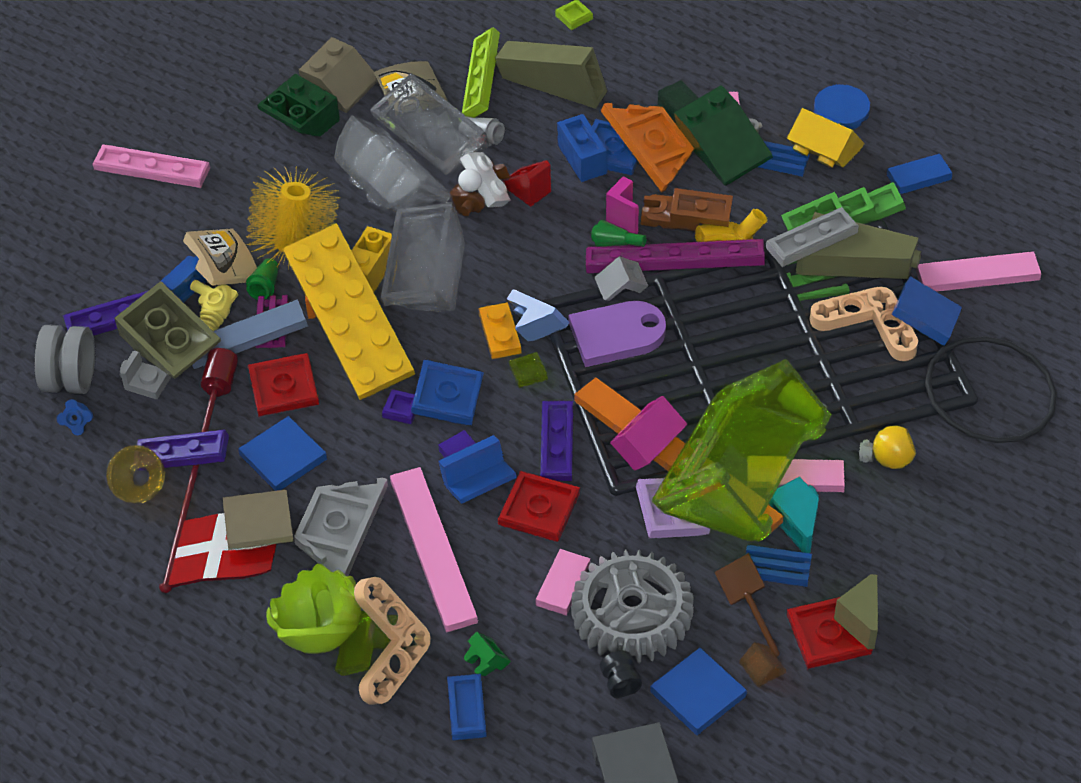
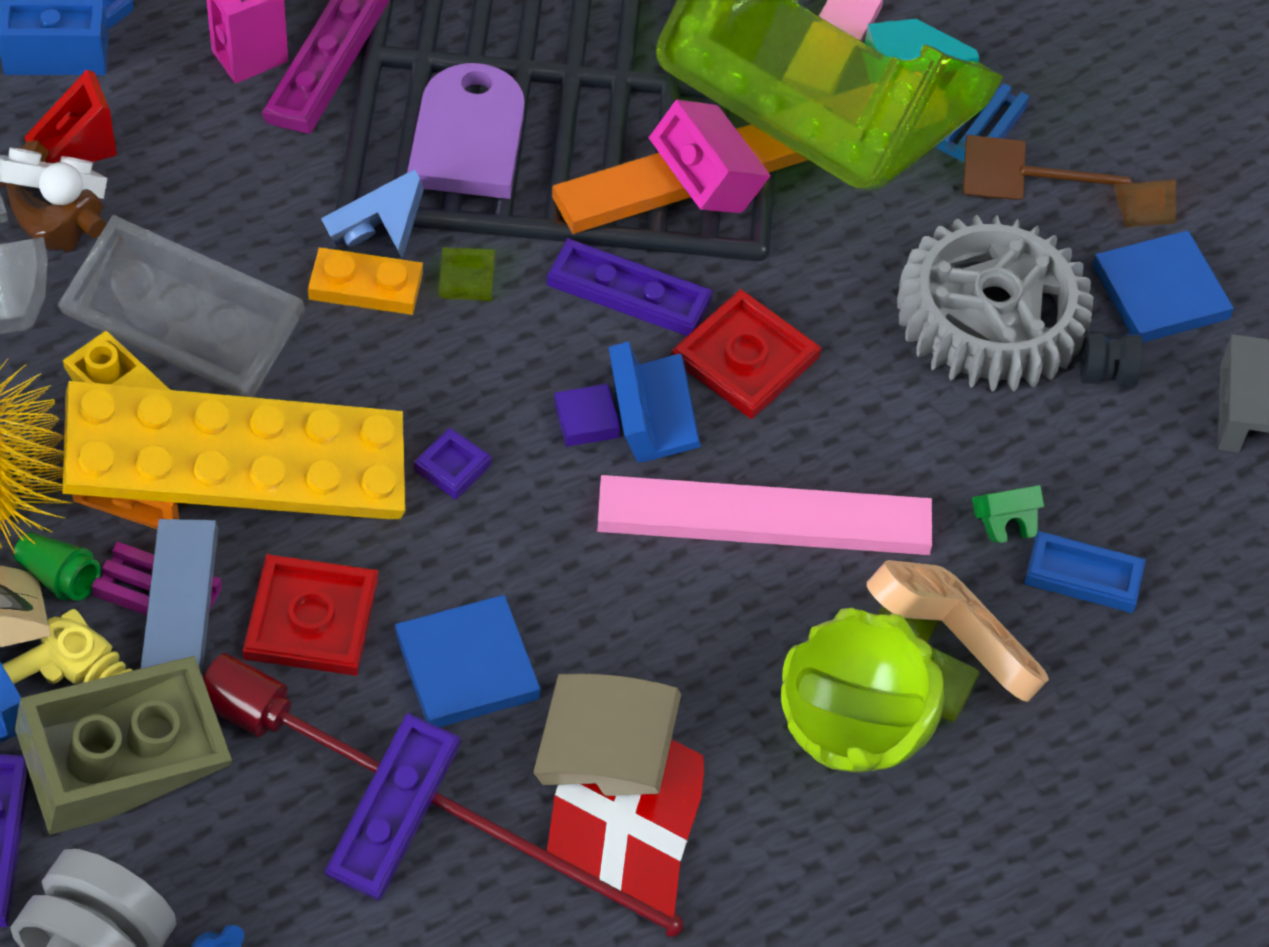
camera: 75 degrees left, 5 degrees up
(121, 472) = (450, 885): clear yellow piece -> none
(142, 377) = (179, 823): light grey bracket -> none
(339, 522) = (665, 624): light grey wing -> none
(447, 392) = (461, 390): blue tile -> none
(560, 582) = (904, 373): bright pink tile -> none
(611, 235) = (263, 71): green cone -> none
(620, 275) = (372, 89): light grey panel -> none
(660, 524) = (827, 206): lavender wing -> none
(821, 636) = (1117, 111): red tile -> none
(859, 611) = (1126, 50): olive slope -> none

